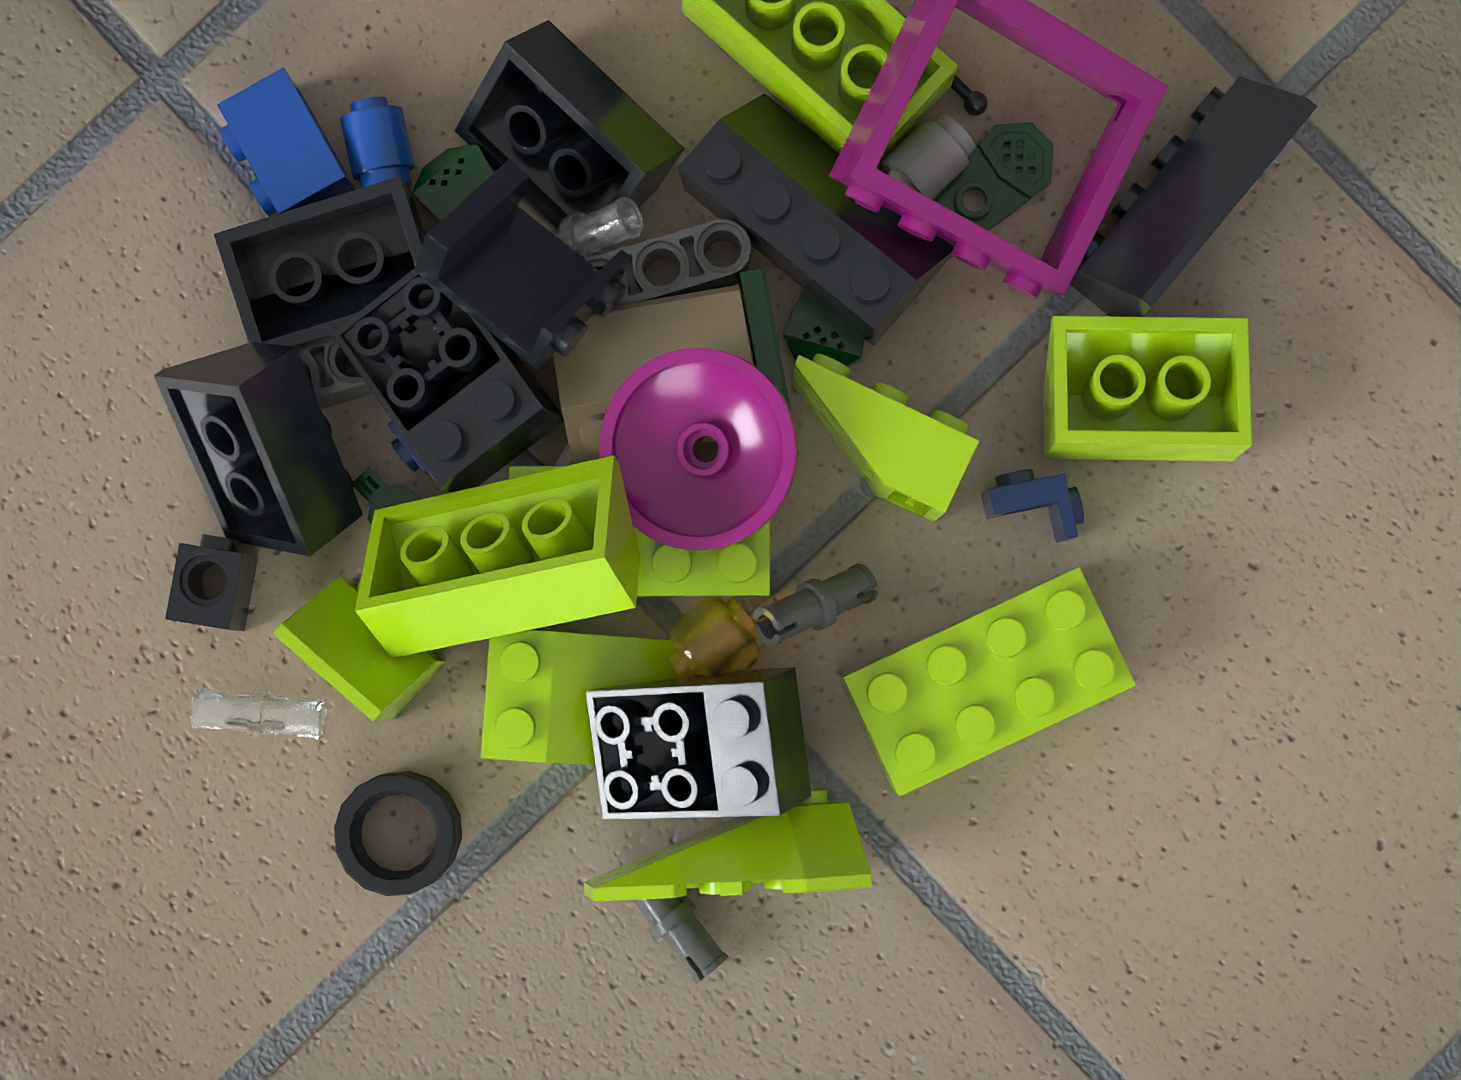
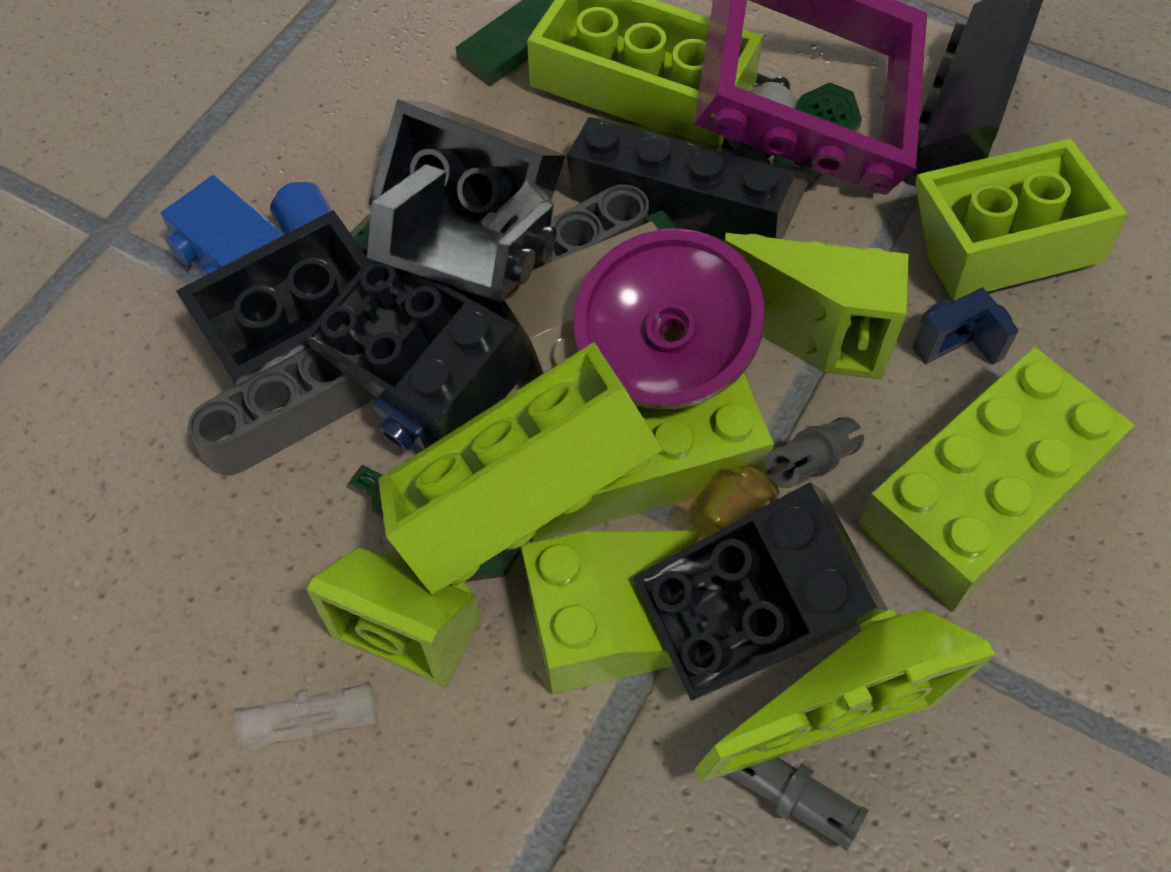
camera: 20 degrees left, 25 degrees down
(188, 601) = (239, 628): black brick -> none
(261, 447) = (254, 451): black slope -> none
(349, 837) = (447, 750): black tyre -> none

